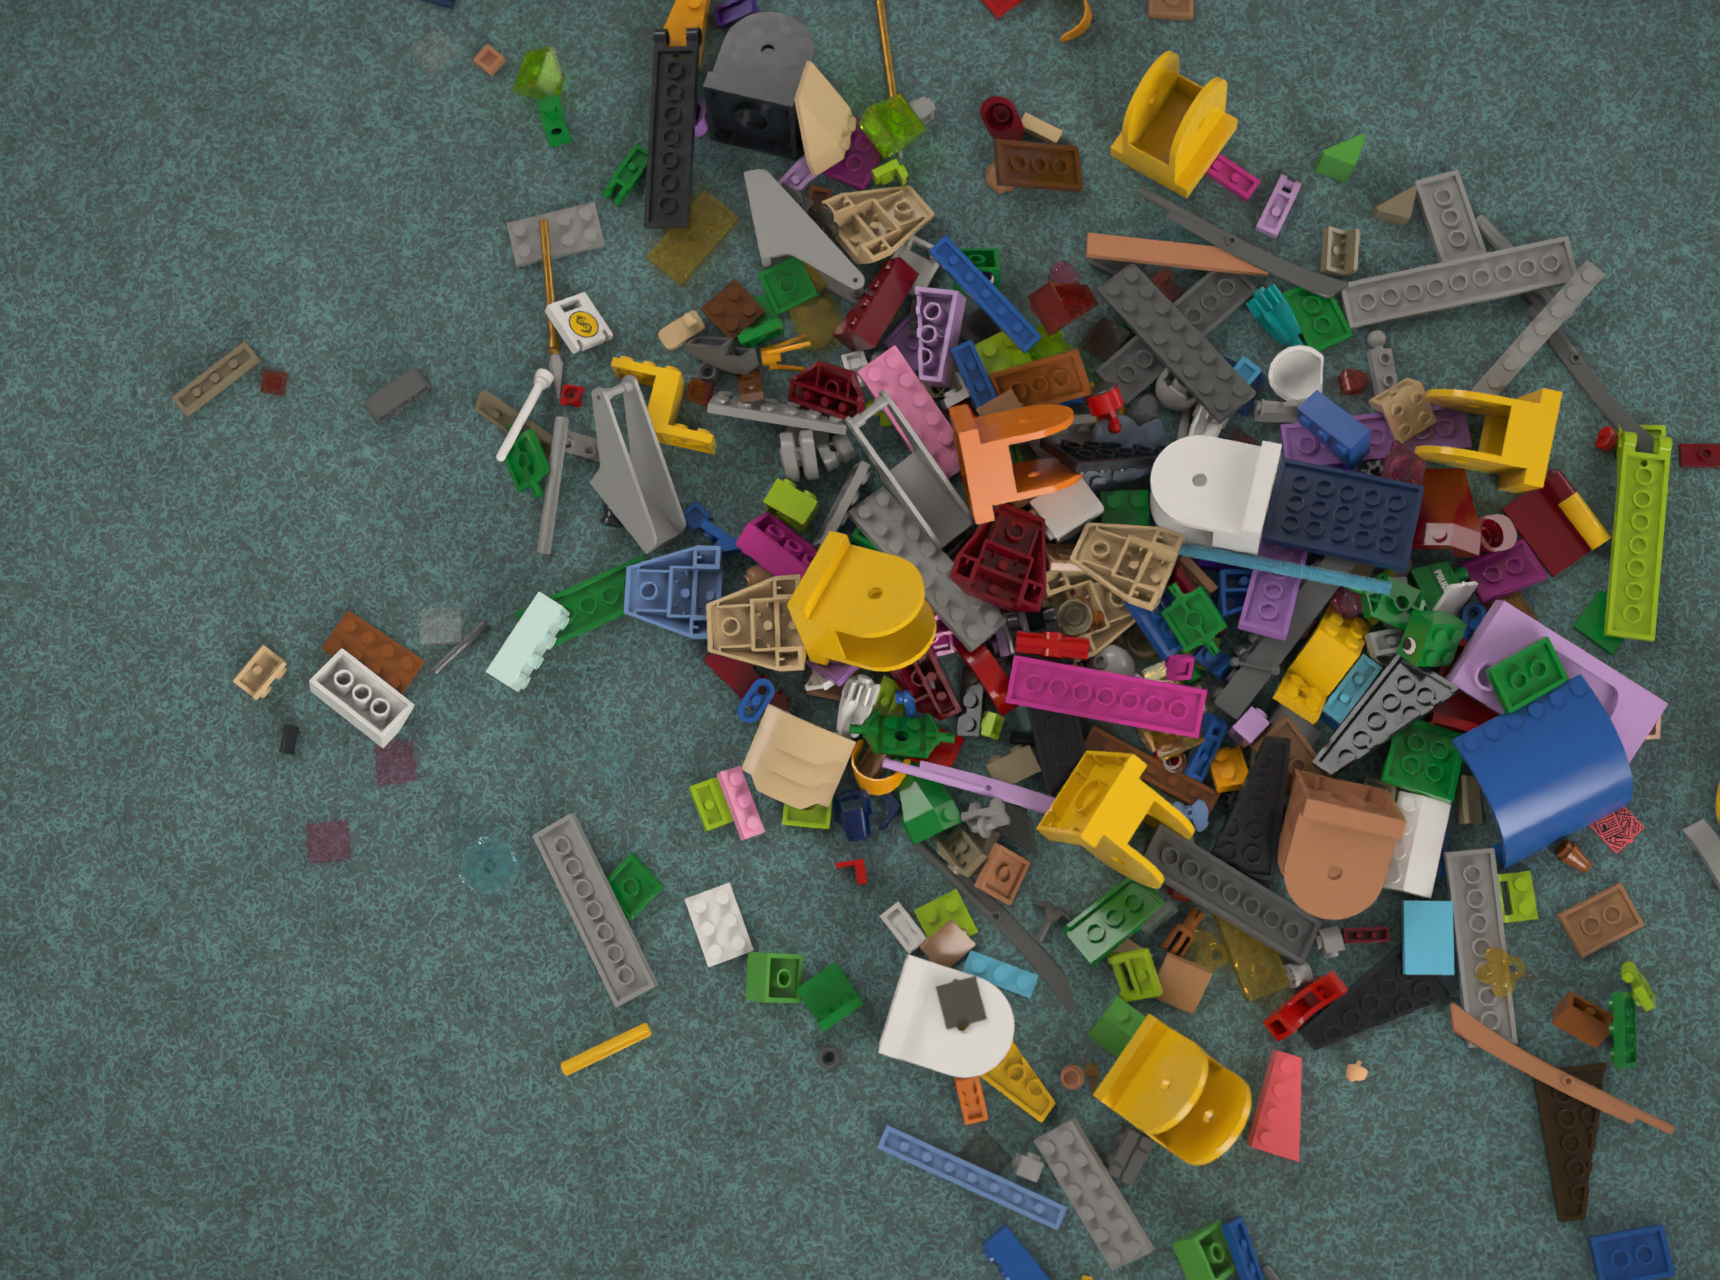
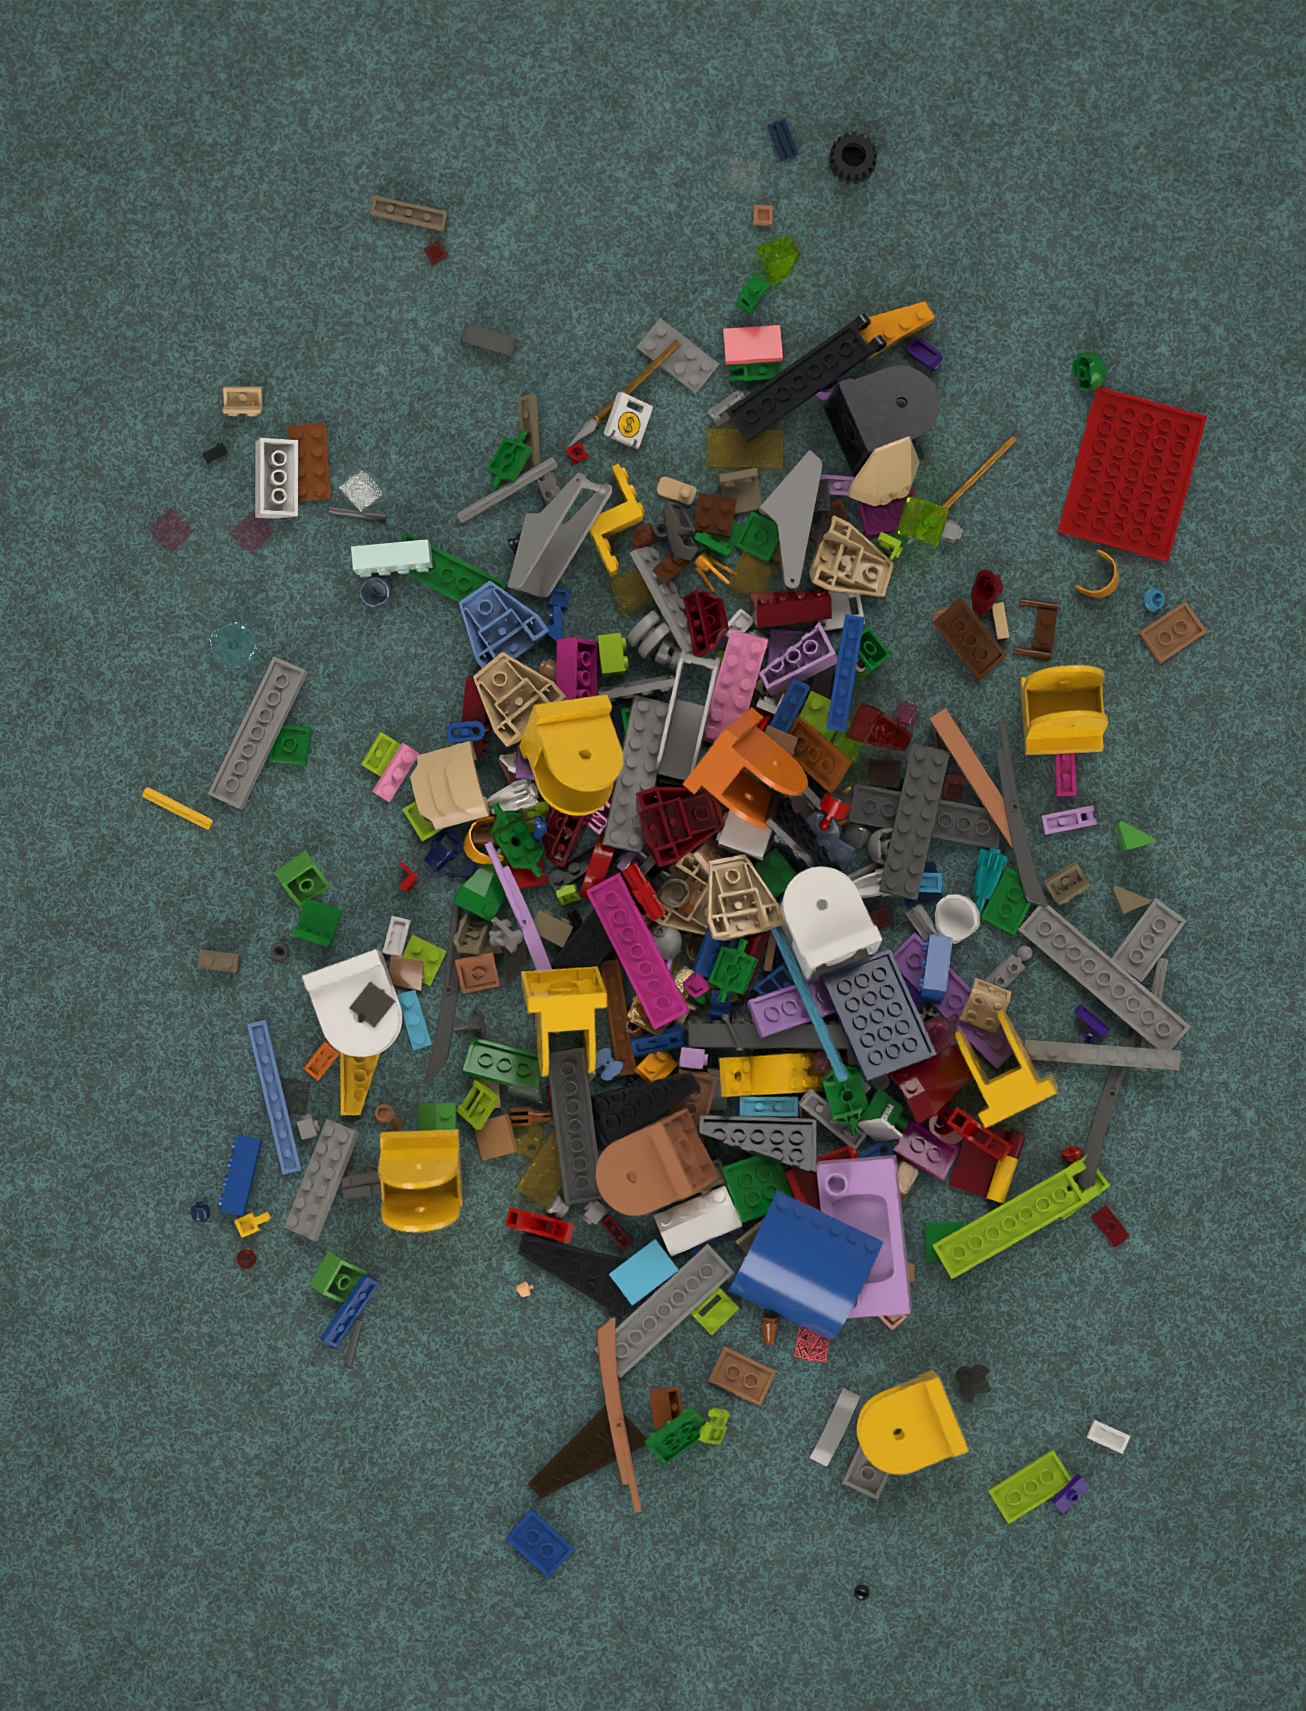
camera: 45 degrees right, 5 degrees up
(542, 380) = (572, 426): white piece -> none
(545, 678) = (369, 587): none -> sand blue hair
(601, 157) = (752, 344): none -> coral tile
(639, 235) = (718, 412): none -> light grey hinge
(719, 924) = (309, 818): white plate -> none
(726, 265) = (744, 487): none -> dark tan bracket
(743, 442) = (630, 591): none -> clear yellow plate
(792, 1126) = (219, 961): none -> dark tan brick
(1079, 97) = (1043, 629): none -> reddish brown plate
(1278, 1108) = (458, 1259): coral wedge -> none
(1352, 381) = (981, 958): clear red plate -> none
(1431, 638) = (837, 1132): green brick -> none
(1497, 971) = (654, 1330): clear yellow plate -> none
(1500, 326) = (1098, 1026): none -> dark purple piece
(1526, 675) = (854, 1206): green plate -> none
(1528, 510) = (979, 1135): none -> red arch

